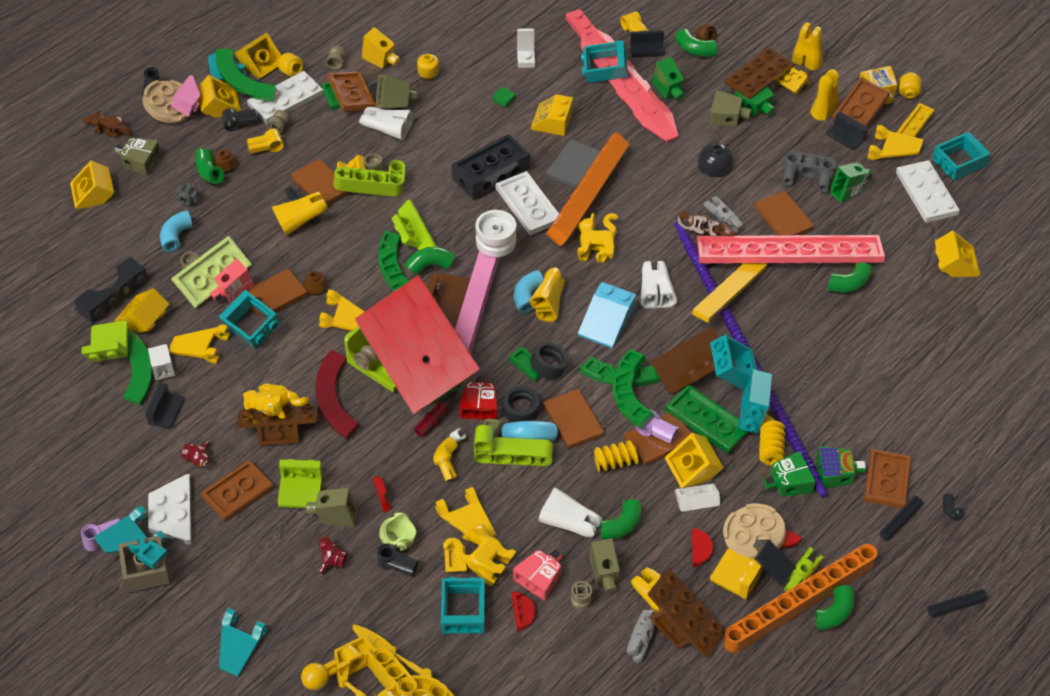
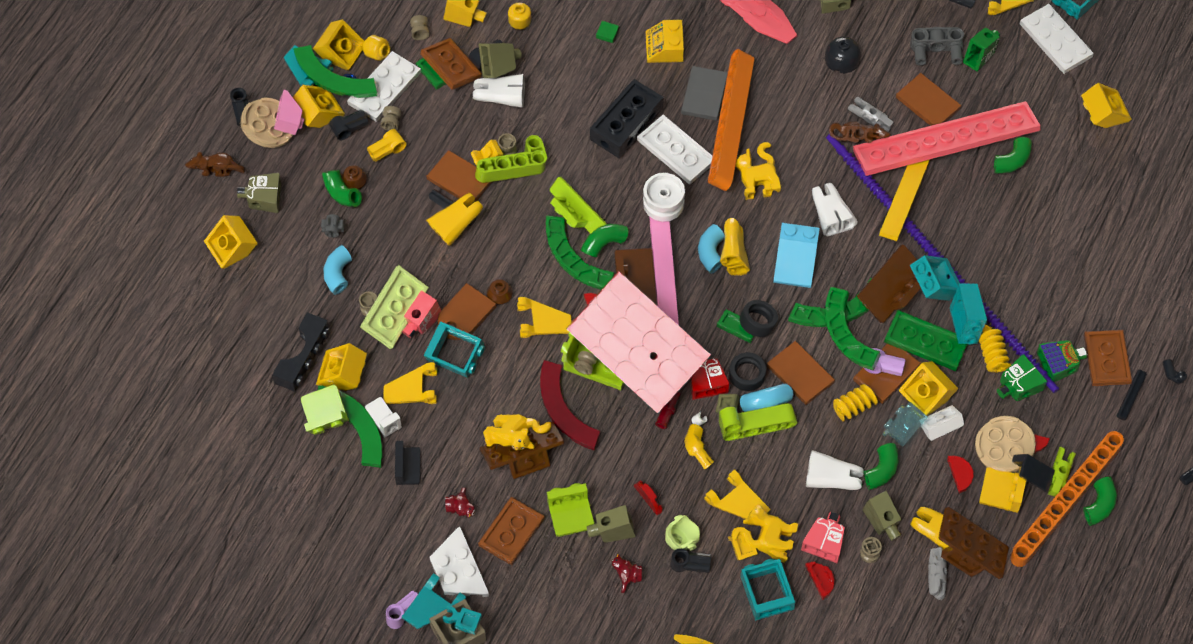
camera: 15 degrees left, 10 degrees up
(658, 487) = (905, 424): none -> clear light blue bracket

